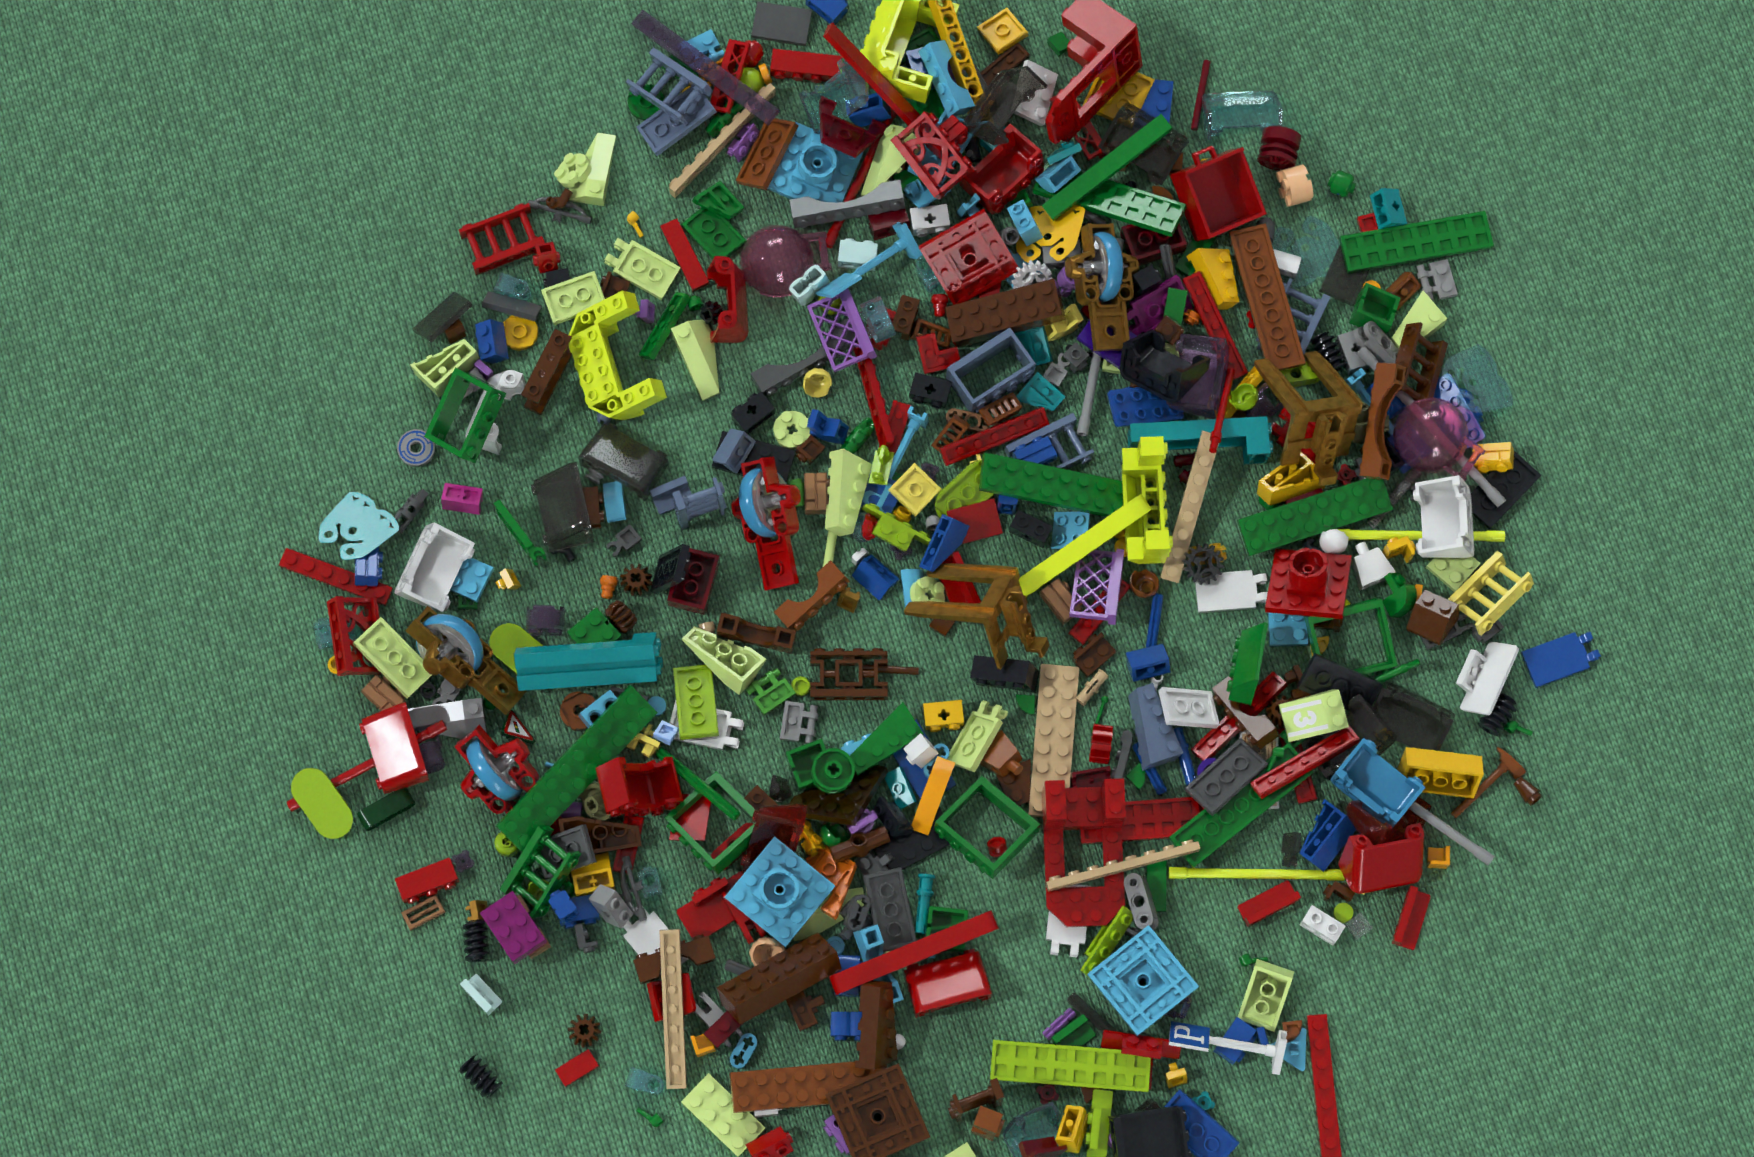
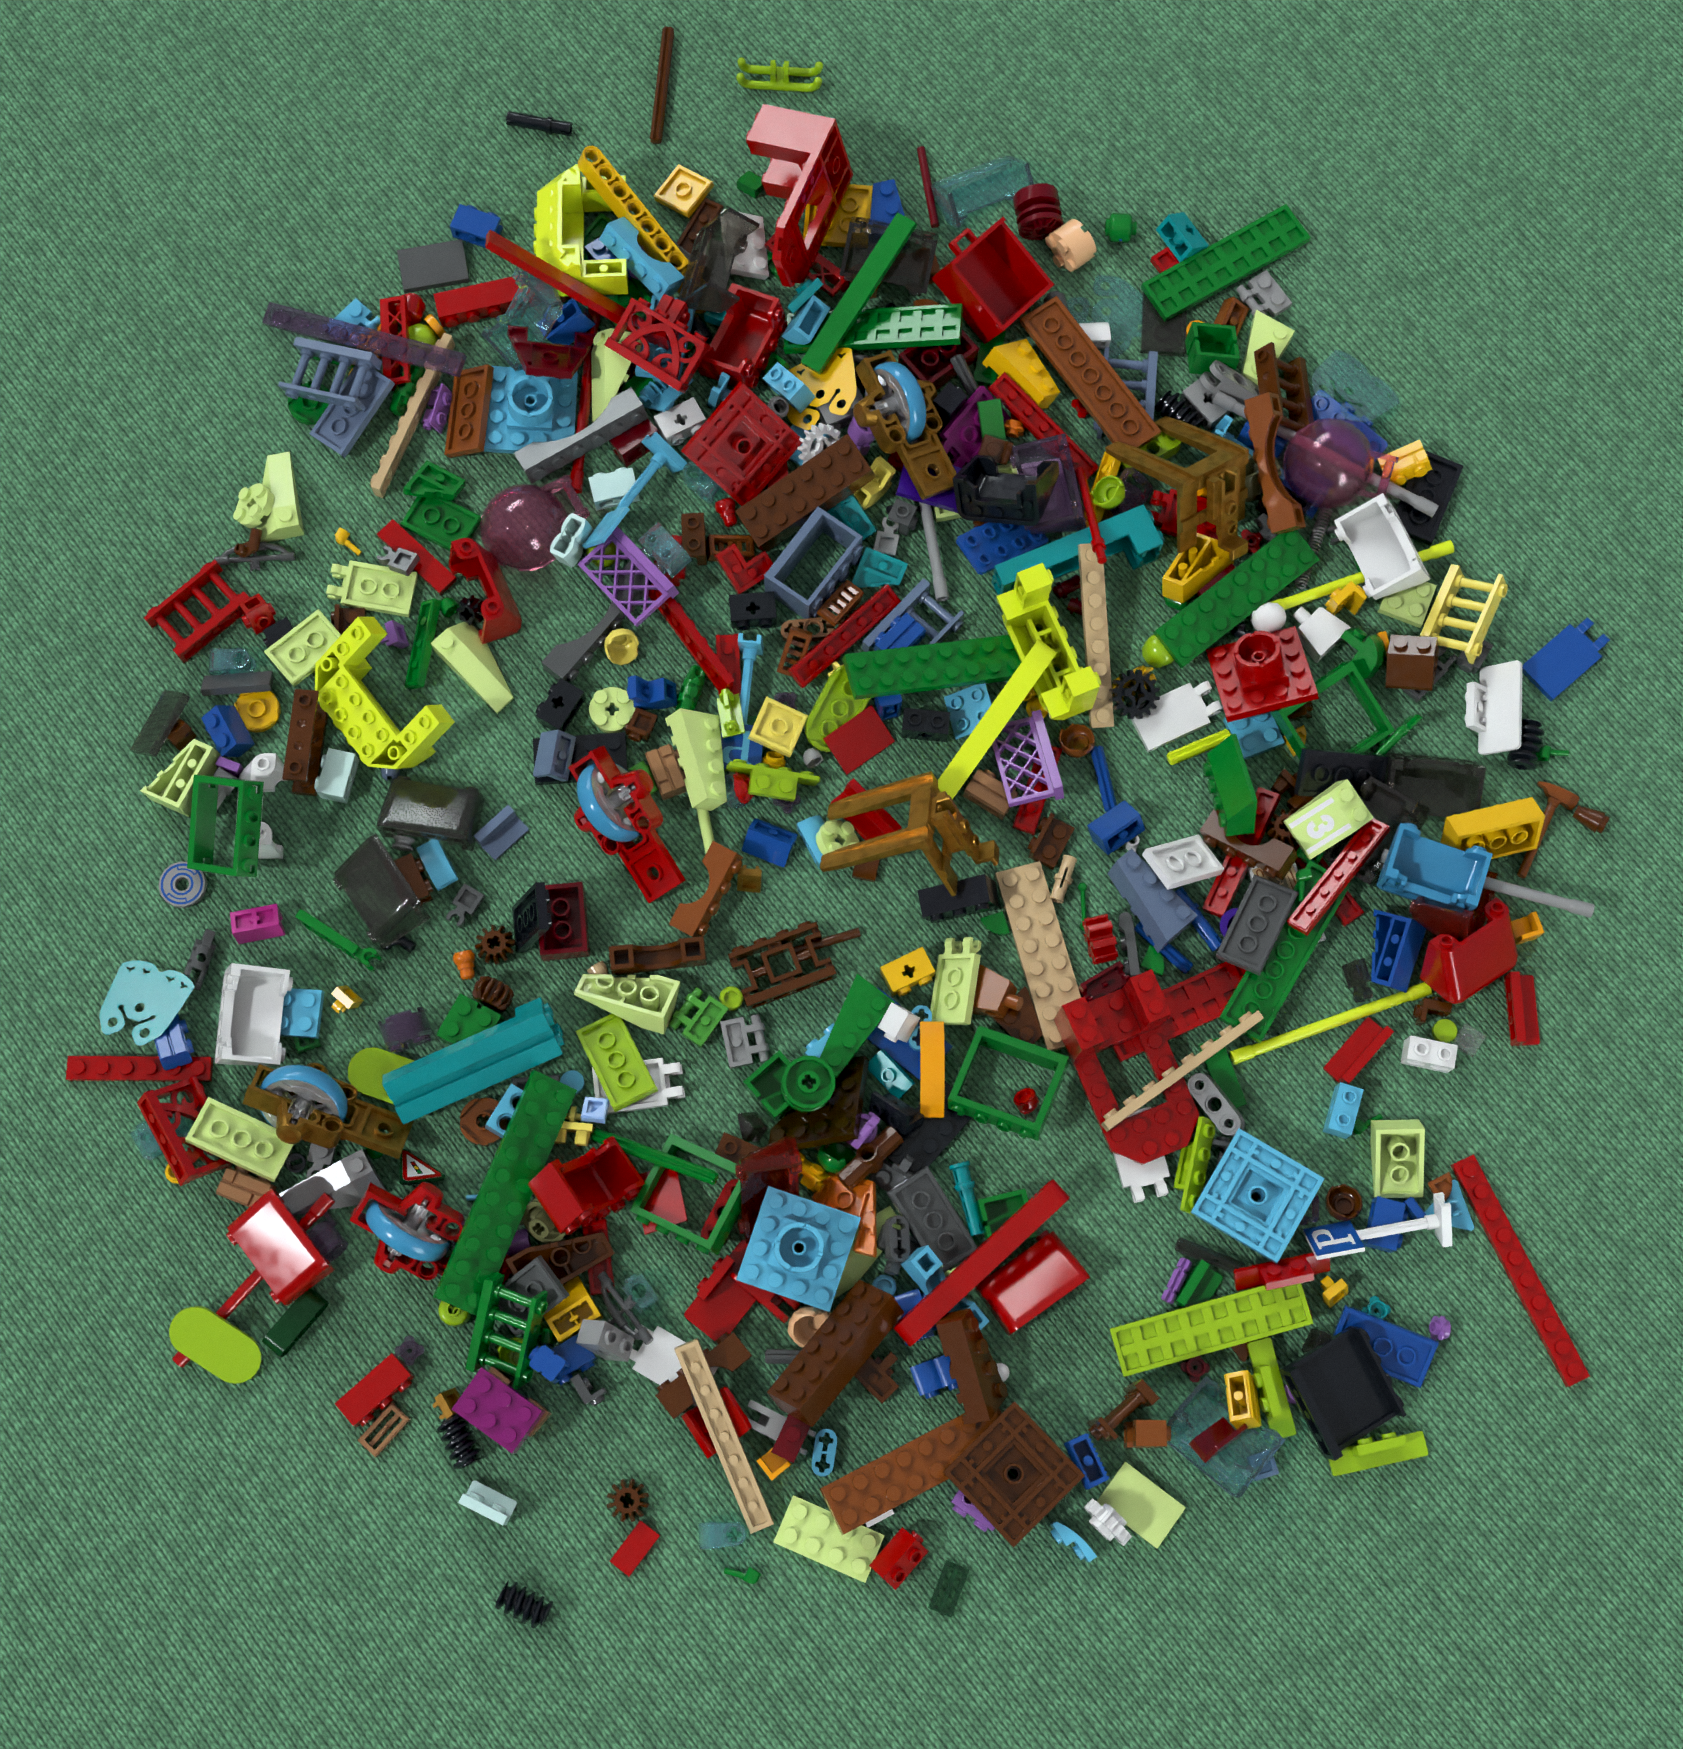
camera: 20 degrees left, 0 degrees up
(562, 405) = (336, 775): none -> light aqua brick
(670, 254) = (400, 561): none -> plate
(699, 503) = (536, 829): sand blue fence -> none
(857, 557) = (742, 825): white tile -> none
(937, 1129) = (1085, 1458): none -> blue brick
(945, 540) = (834, 774): blue slope -> none
(1209, 1012) = (1343, 1202): none -> reddish brown hair
(1234, 538) = (1155, 653): none -> lime hair
(1237, 623) = (1197, 747): none -> neon yellow axle
(1238, 943) = (1343, 1110): none -> medium azure brick
(1246, 1133) = (1439, 1328): none -> medium lavender plate

